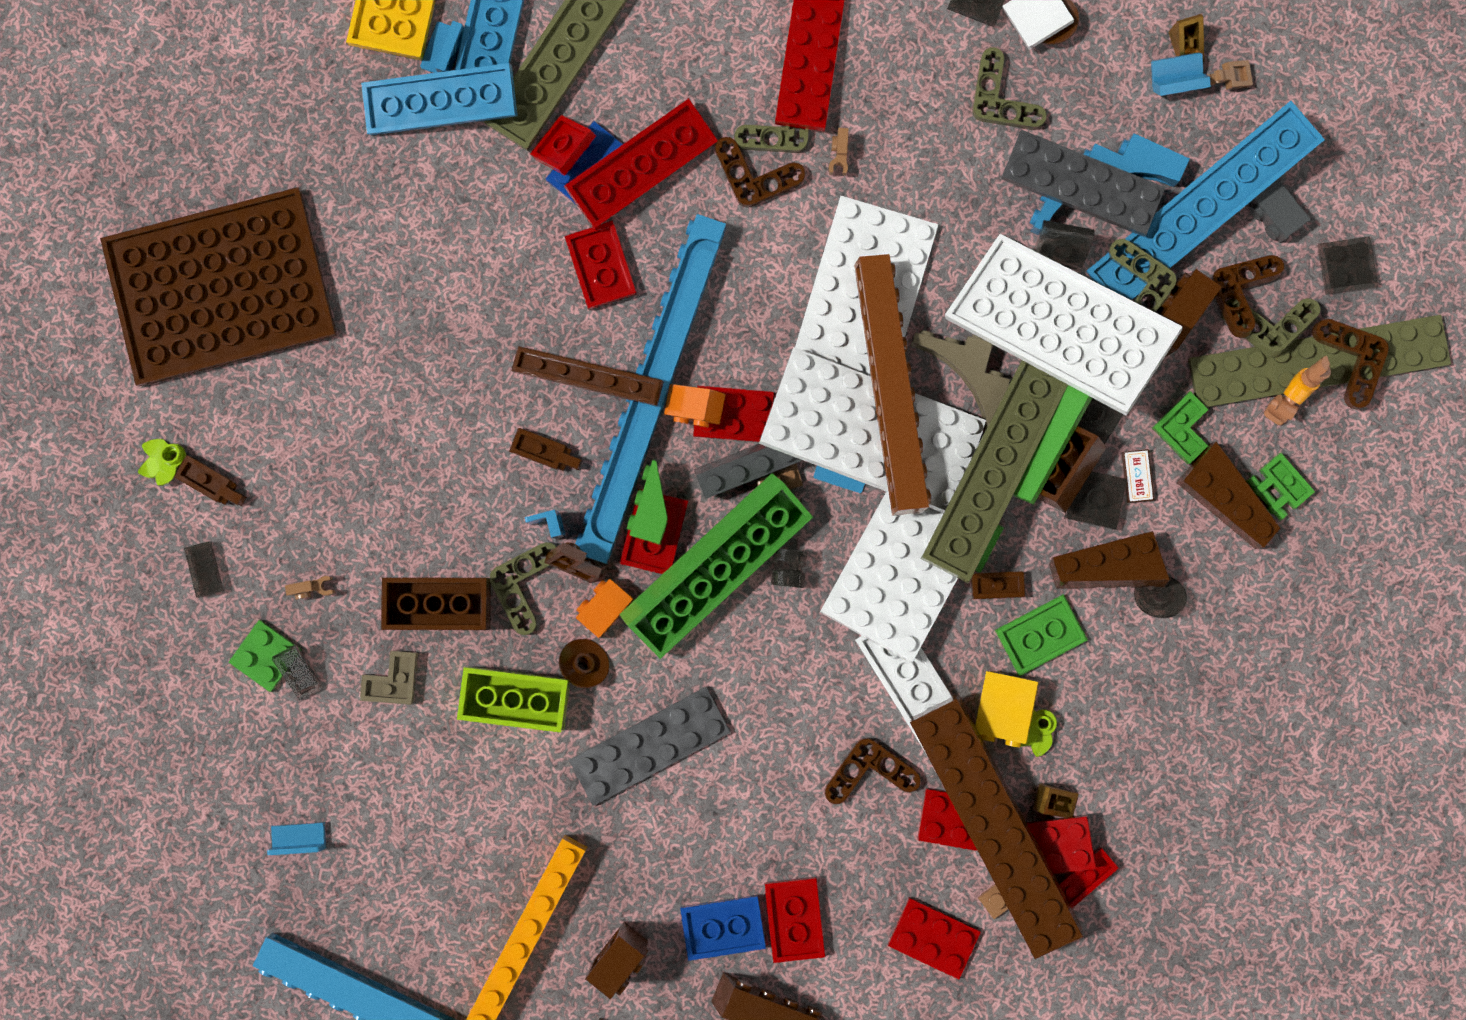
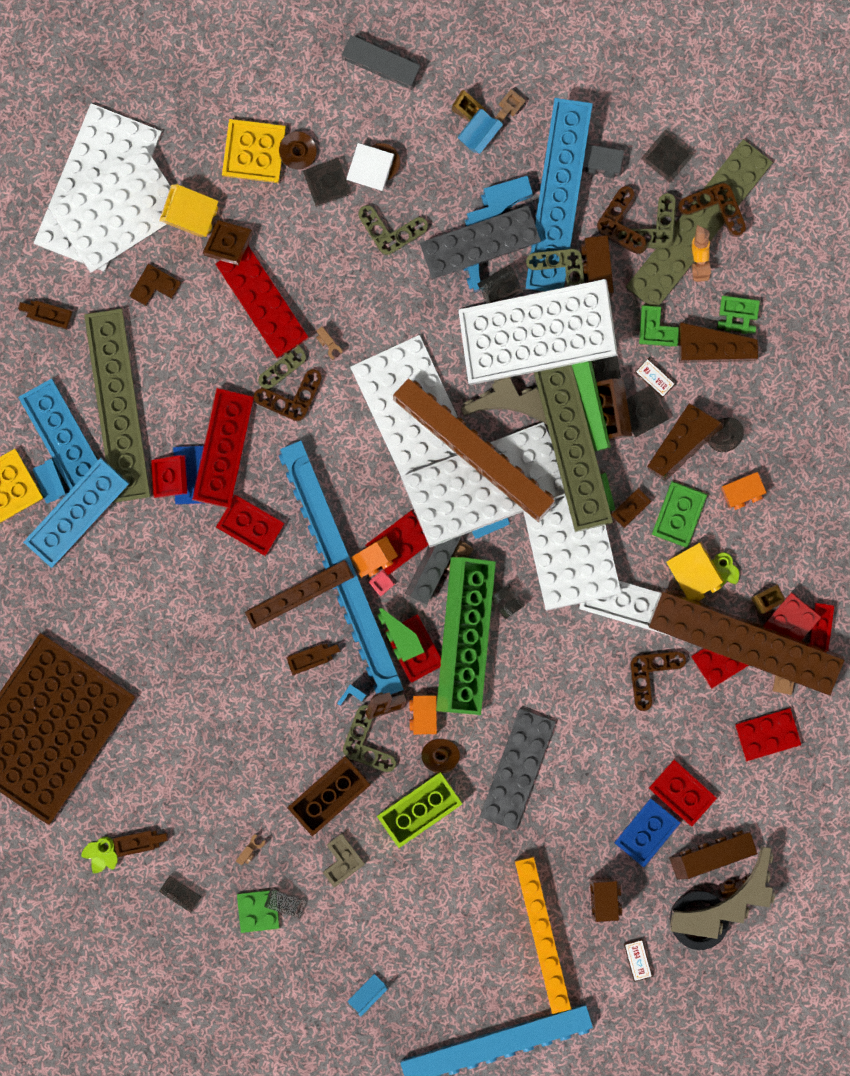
camera: 45 degrees left, 0 degrees up
(679, 438) = (381, 583): none -> coral tile
(1128, 668) = (743, 490): none -> orange brick

